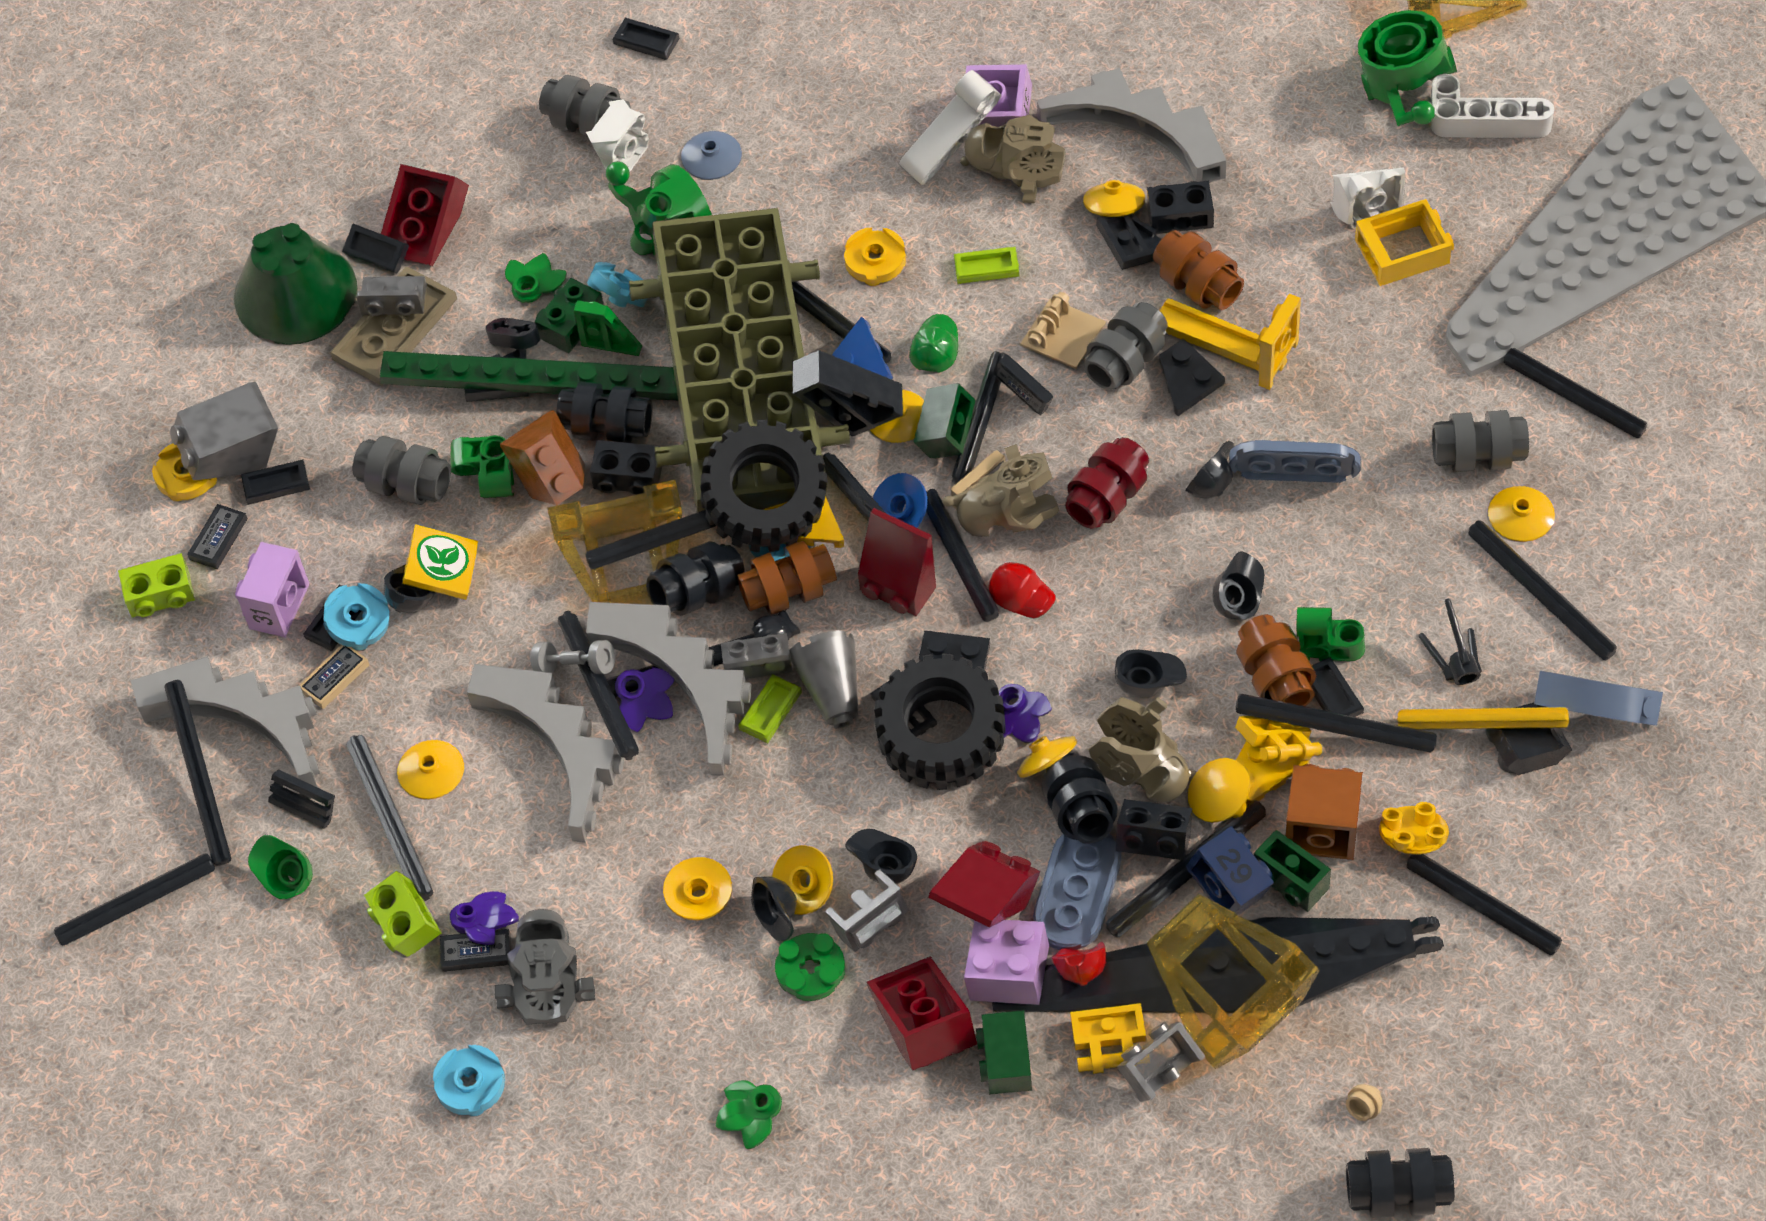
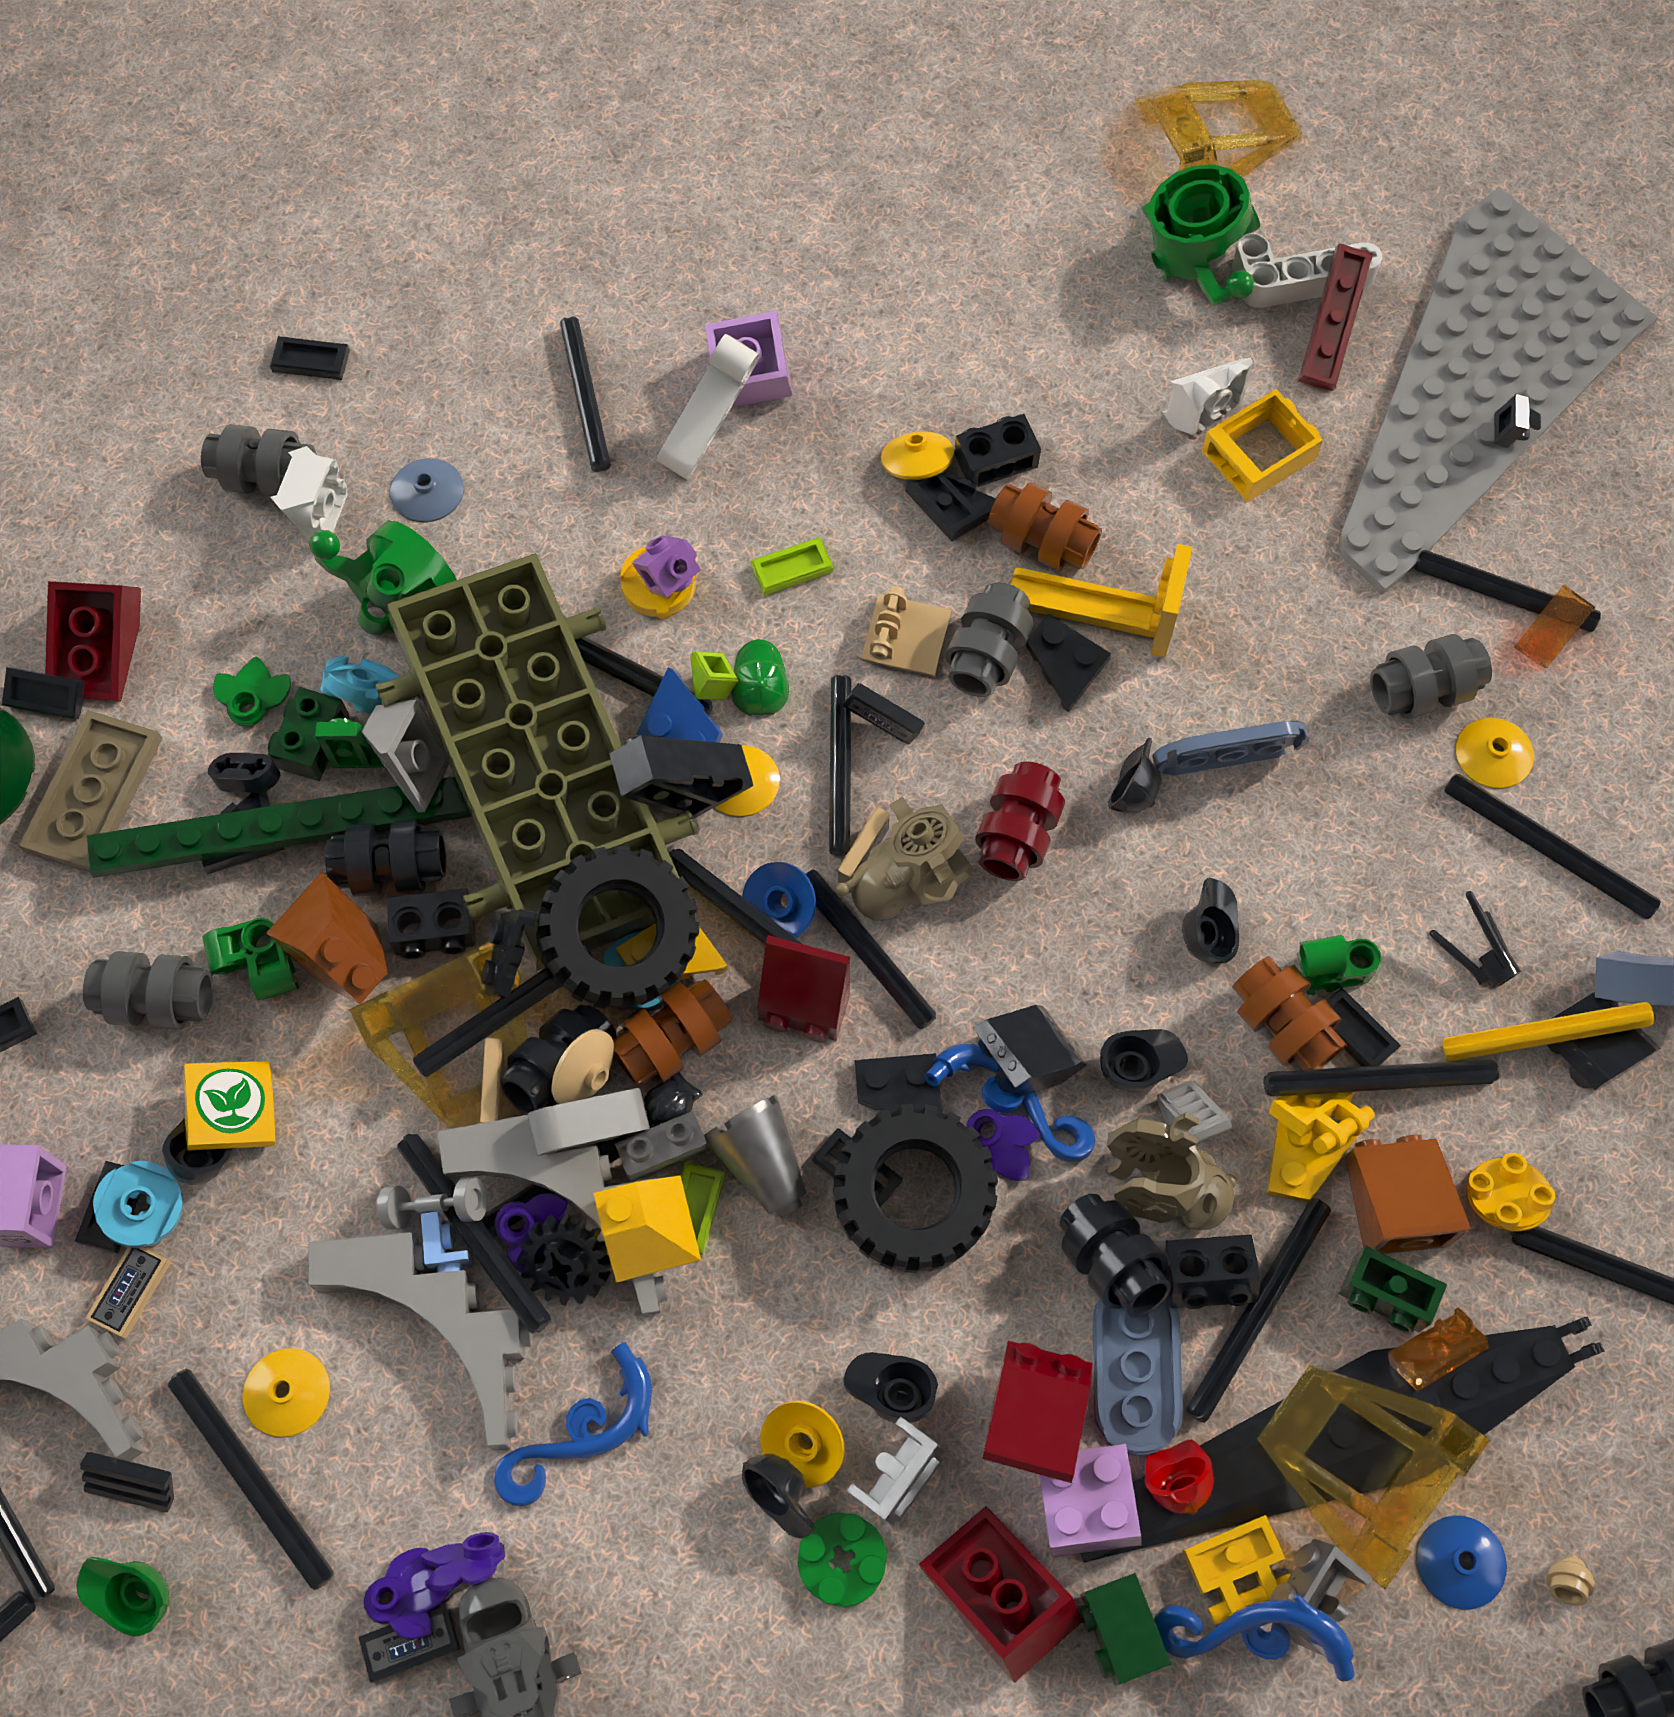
camera: 20 degrees left, 10 degrees up
(392, 295) = (79, 754): flat silver bracket -> none
(406, 911) = (308, 1613): lime brick -> none
(539, 900) = (464, 1562): none -> dark purple plate
(571, 687) = (436, 1239): none -> light blue bracket
(642, 335) = (408, 749): none -> light grey slope
(642, 850) = (584, 1445): none -> blue plant
(647, 563) = (491, 1085): none -> tan tile
(665, 702) = (565, 1259): none -> black gear
(678, 480) = (506, 935): none -> black wing
(695, 875) = (651, 1477): yellow dish -> none
(703, 618) = (588, 1121): none -> light grey beam
(710, 581) = (583, 1067): none -> tan dish
(726, 698) = (646, 1227): none -> yellow slope
(858, 104) = (585, 394): none -> black axle
(882, 241) = (667, 565): none -> medium lavender brick
(895, 331) = (712, 675): none -> lime slope
(944, 421) = (803, 780): dark green brick -> none
(1017, 152) = (791, 409): dark tan helmet -> none
(1020, 590) = (953, 979): red piece -> none
(1045, 754) = (1055, 1203): yellow dish -> none
(1047, 678) = (965, 1055): none -> blue plant
(1061, 649) = (1028, 1050): none -> black slope
(1104, 1078) = (1262, 1643): none -> blue plant
(1110, 102) = (925, 341): light grey arch -> none
(1177, 714) = (1192, 1099): none -> light grey slope
(1219, 790) = (1272, 1198): yellow dish -> none
(1230, 871) = (1329, 1318): dark blue brick -> none
(1286, 1089) = (1440, 1568): none -> blue dish
(1307, 920) = (1438, 1350): none -> clear orange plate
(1498, 153) = (1335, 317): none -> dark red tile
(1601, 425) = (1554, 626): none -> clear orange plate
(1621, 260) = (1514, 421): none -> black tile

